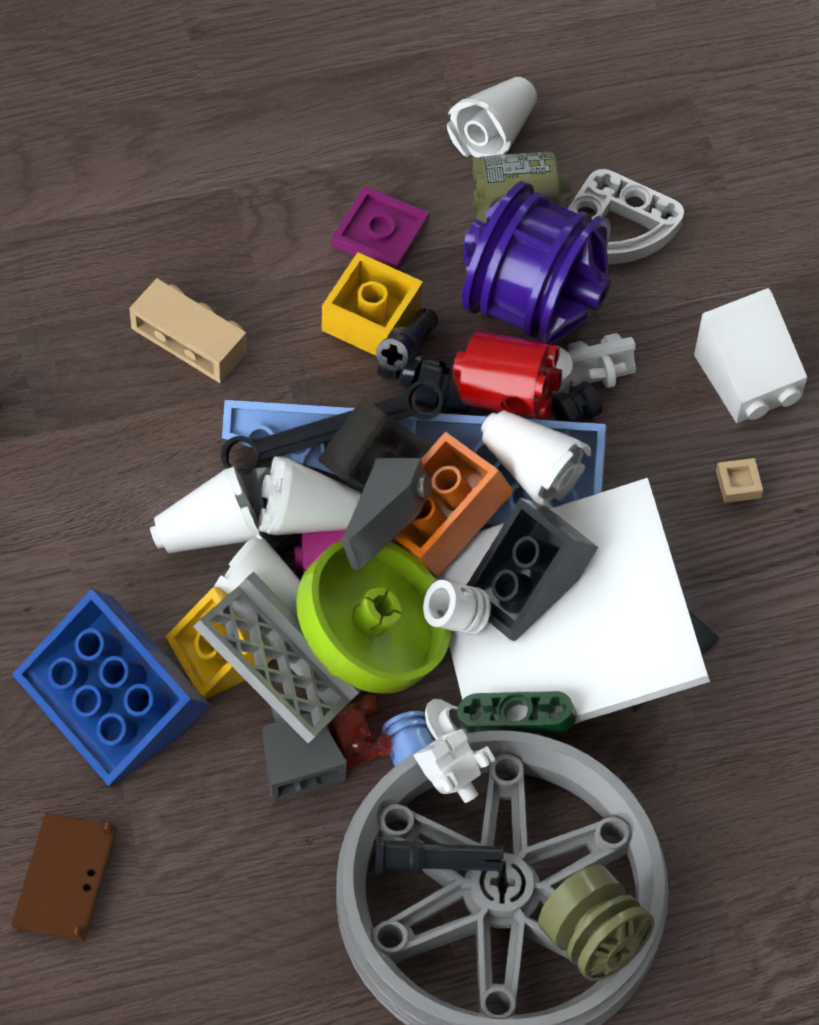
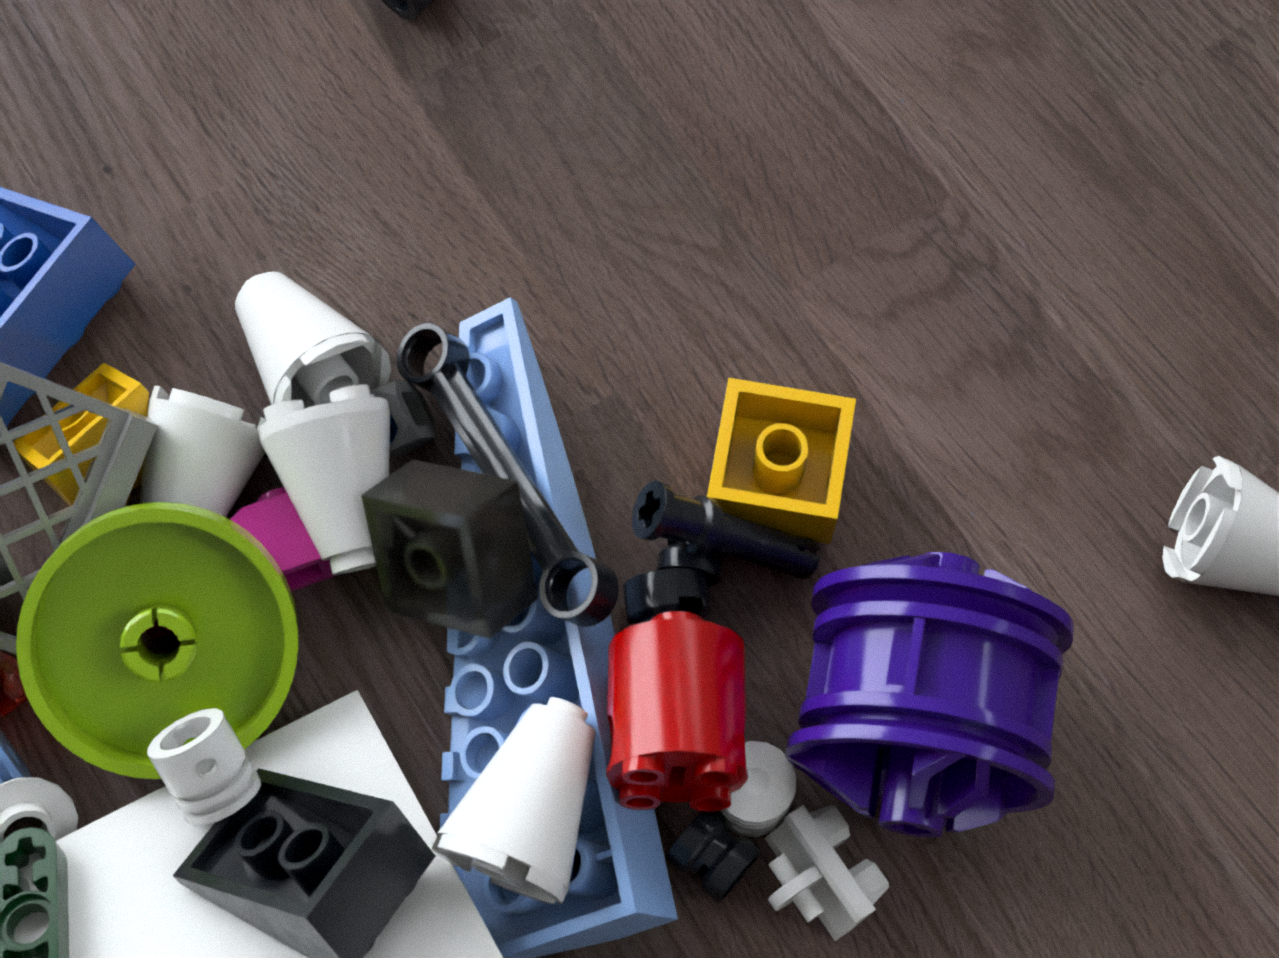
camera: 75 degrees right, 10 degrees up
(188, 330) = (644, 215): tan brick -> none
(380, 228) = (951, 432): magenta plate -> none
(386, 506) = (322, 585): dark grey slope -> none
(461, 502) = (401, 682): orange brick -> none
(499, 173) = (1127, 628): olive cylinder -> none
(604, 200) = (1167, 779): white beam -> none

